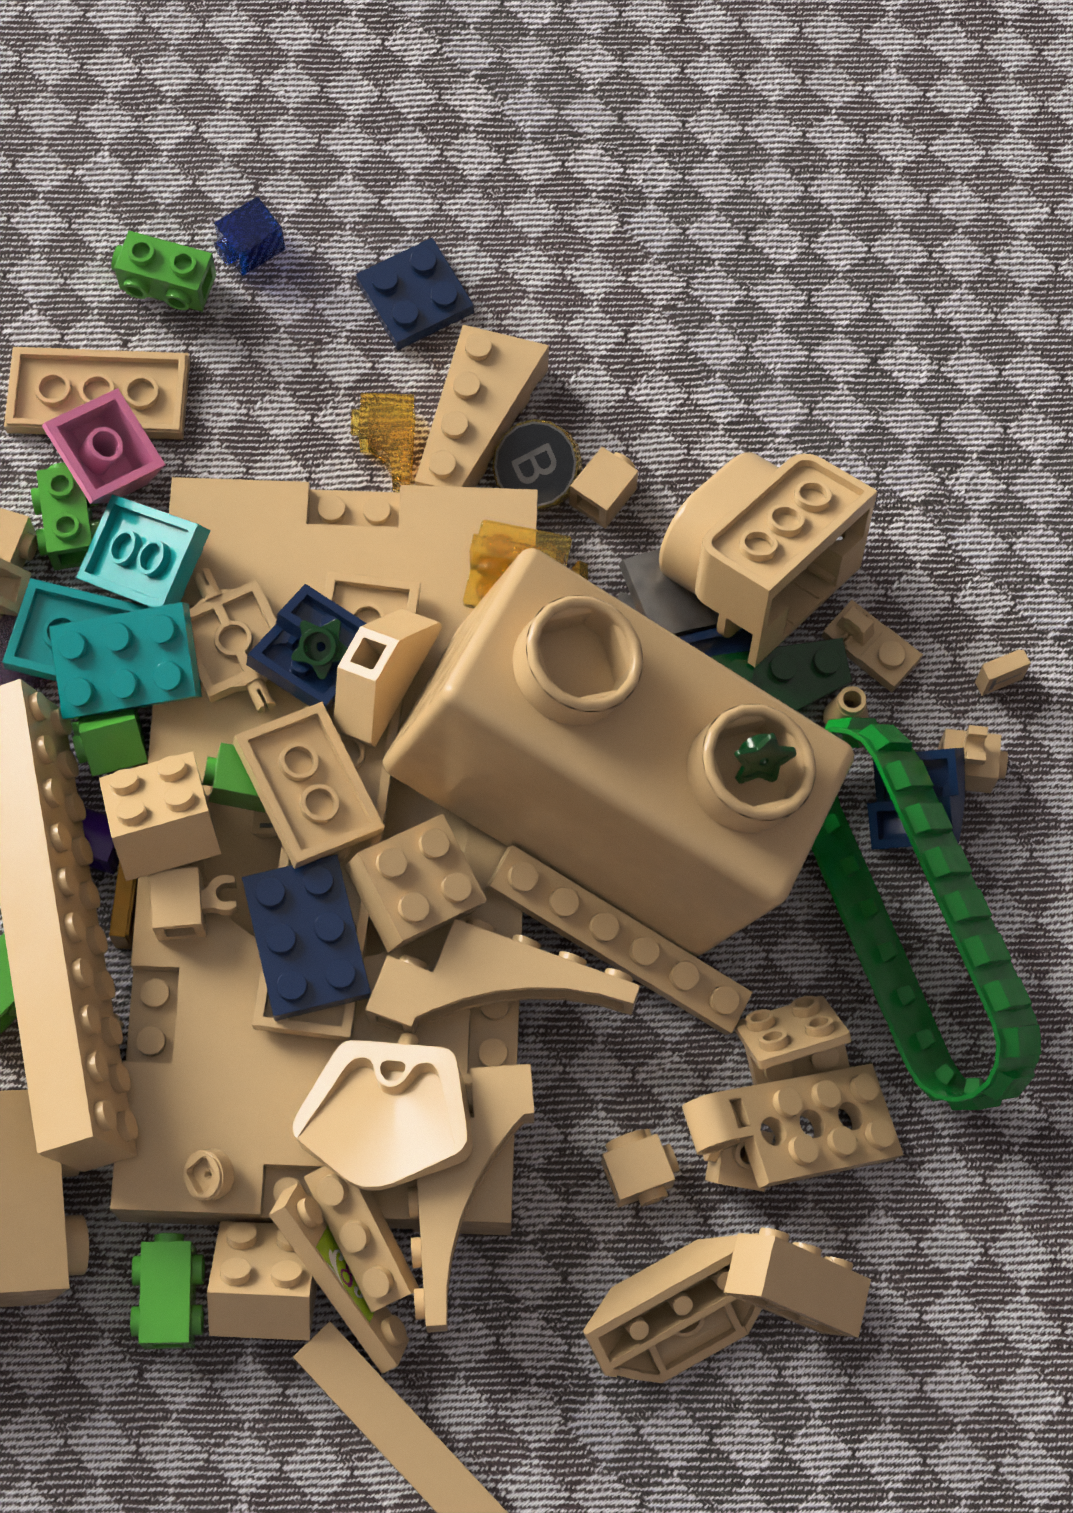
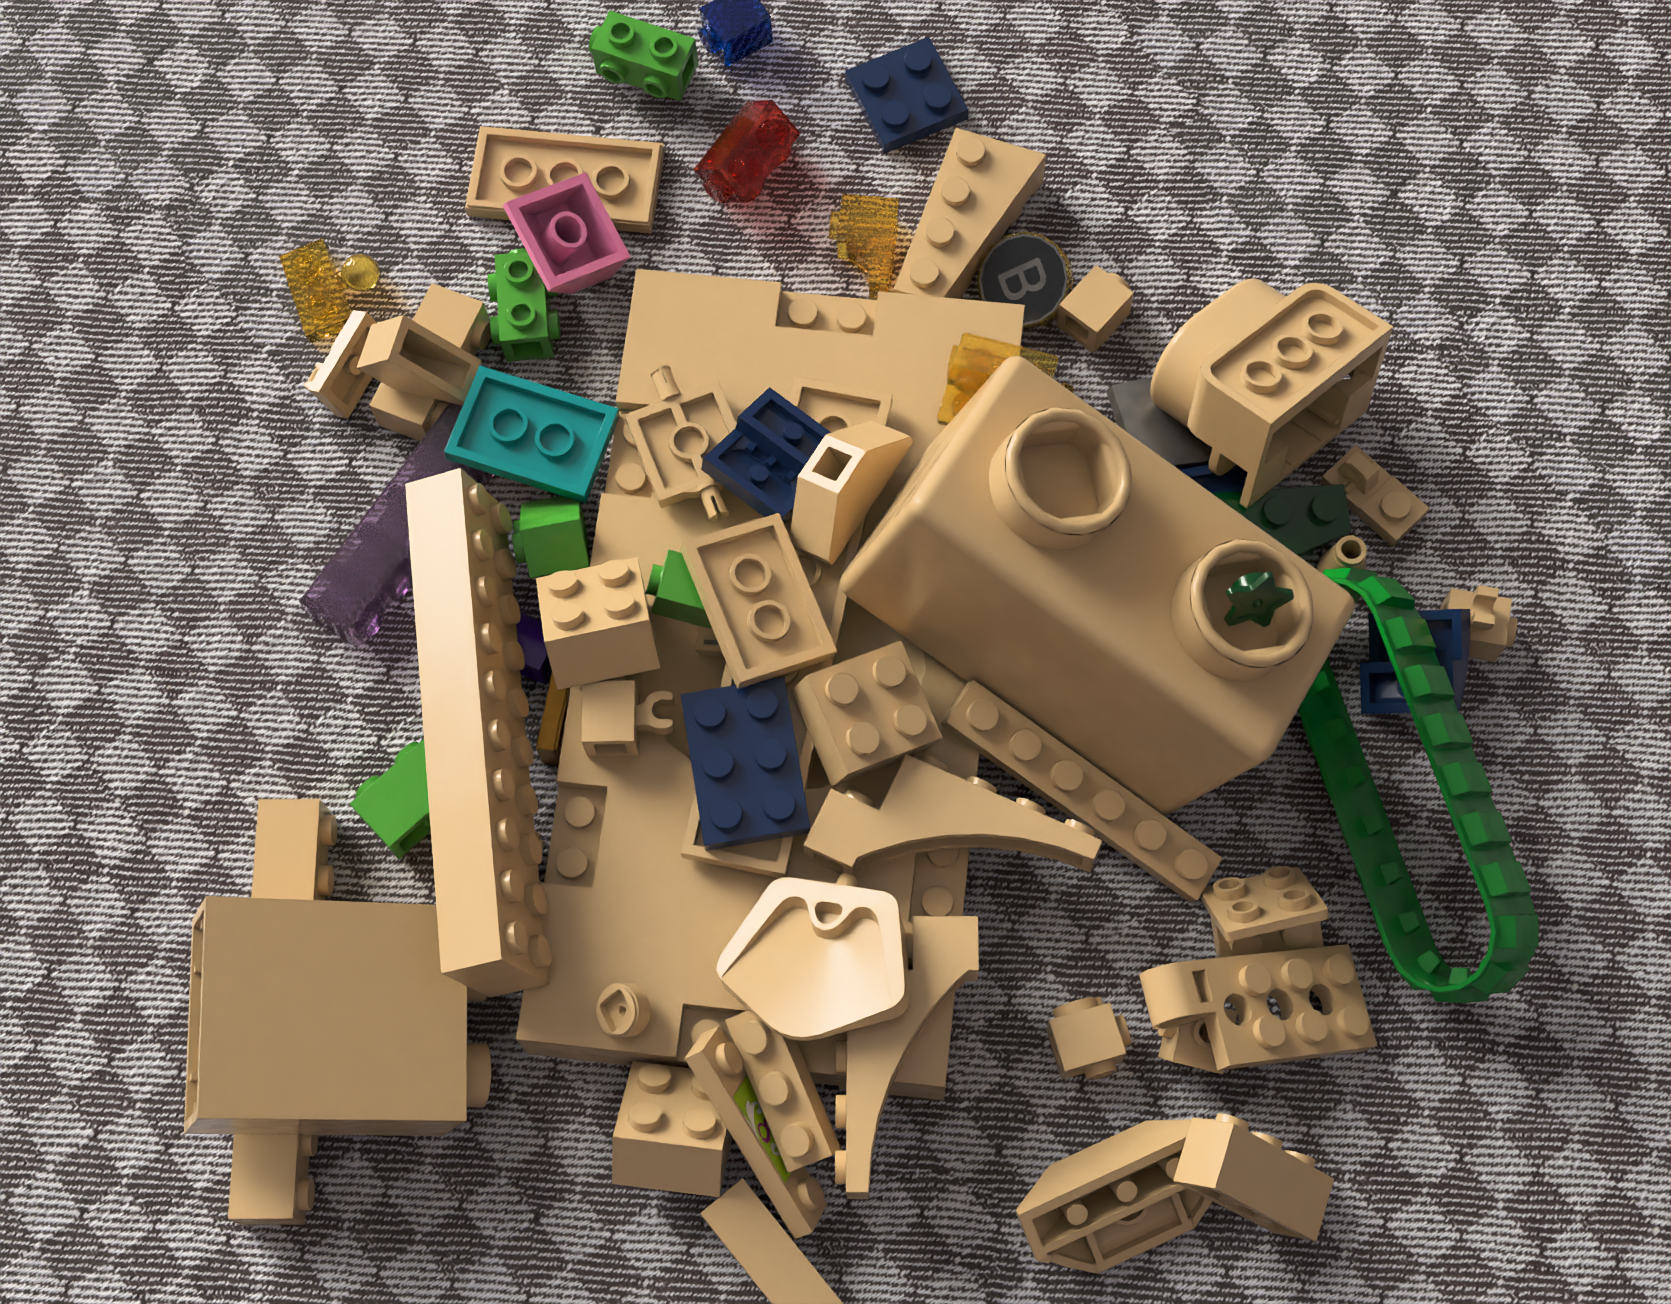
camera: 10 degrees right, 0 degrees up
(125, 661) = (573, 457): teal plate -> none
(142, 553) = (600, 347): plate -> none
(167, 1301) = (571, 1134): bright green brick -> none
(268, 358) = (747, 152): none -> clear red brick
(308, 646) = (768, 458): dark green plate -> none
(1002, 672) = (1516, 532): tan tile -> none

